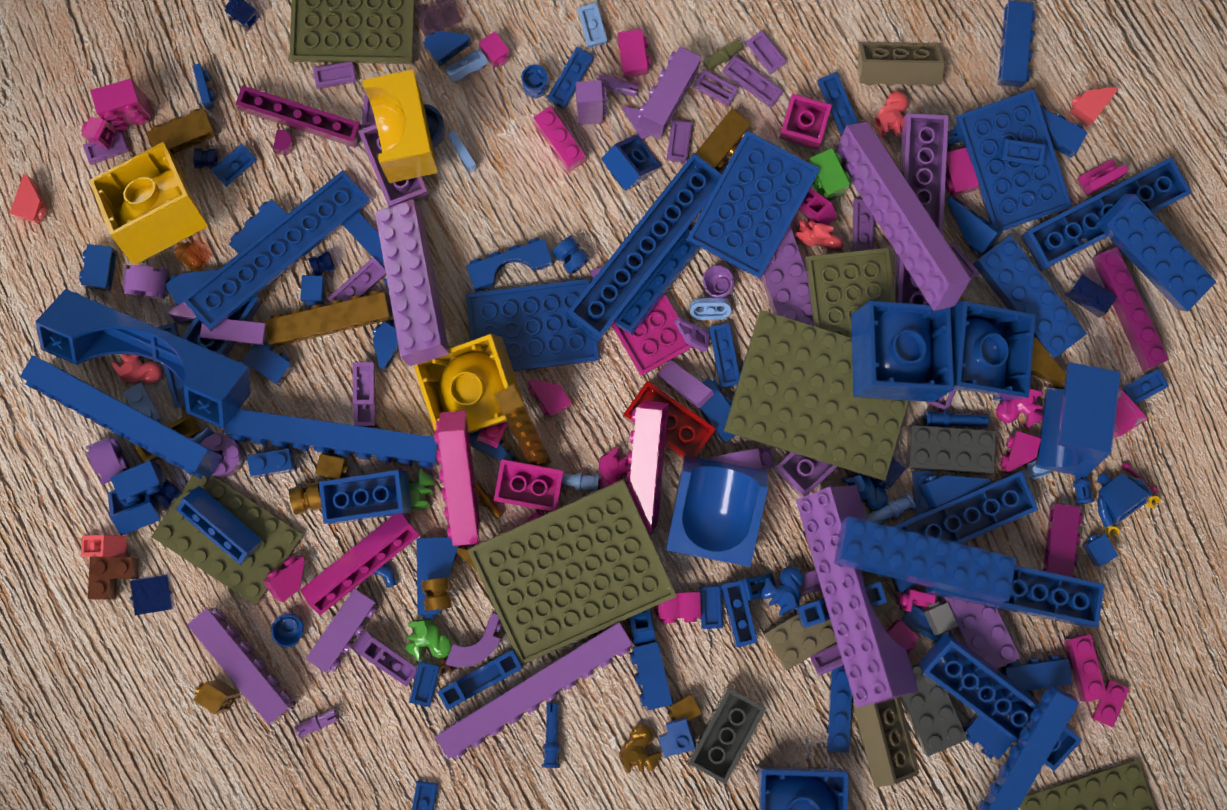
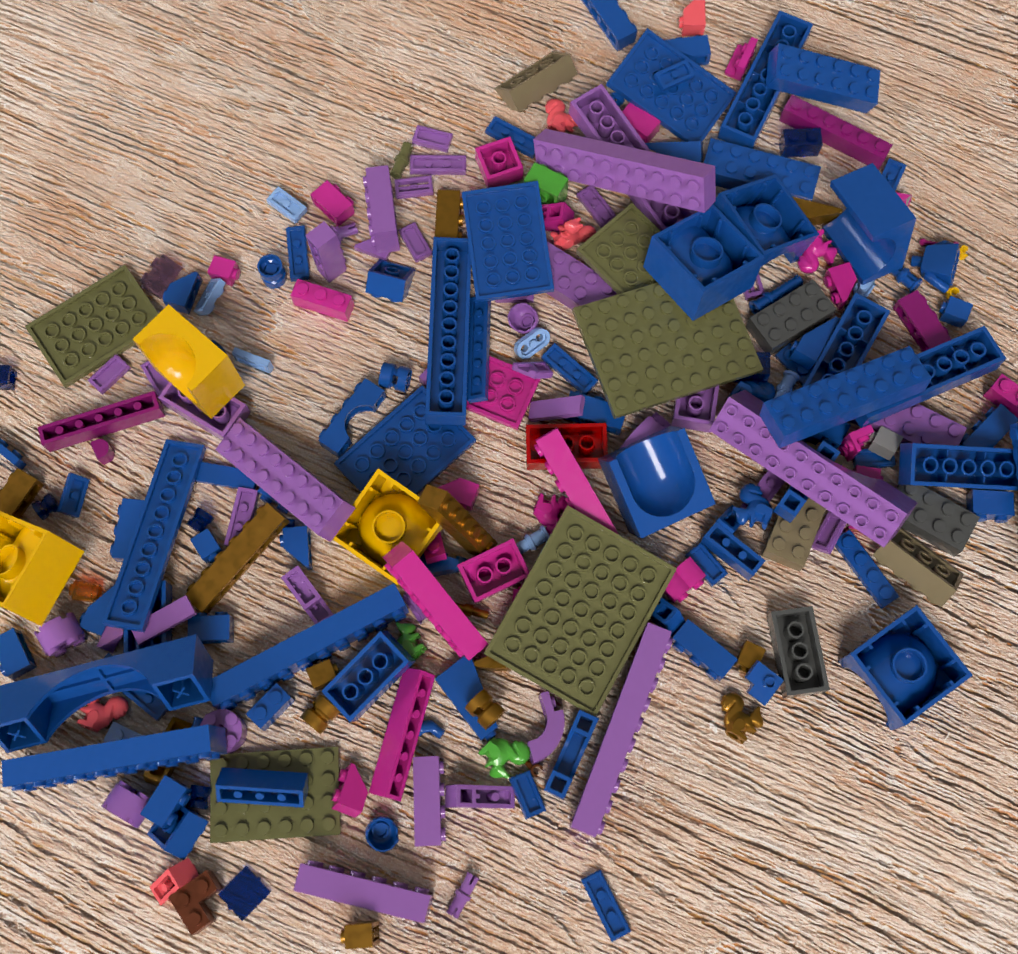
camera: 30 degrees left, 10 degrees down
(551, 747) = (669, 767): blue pin -> none

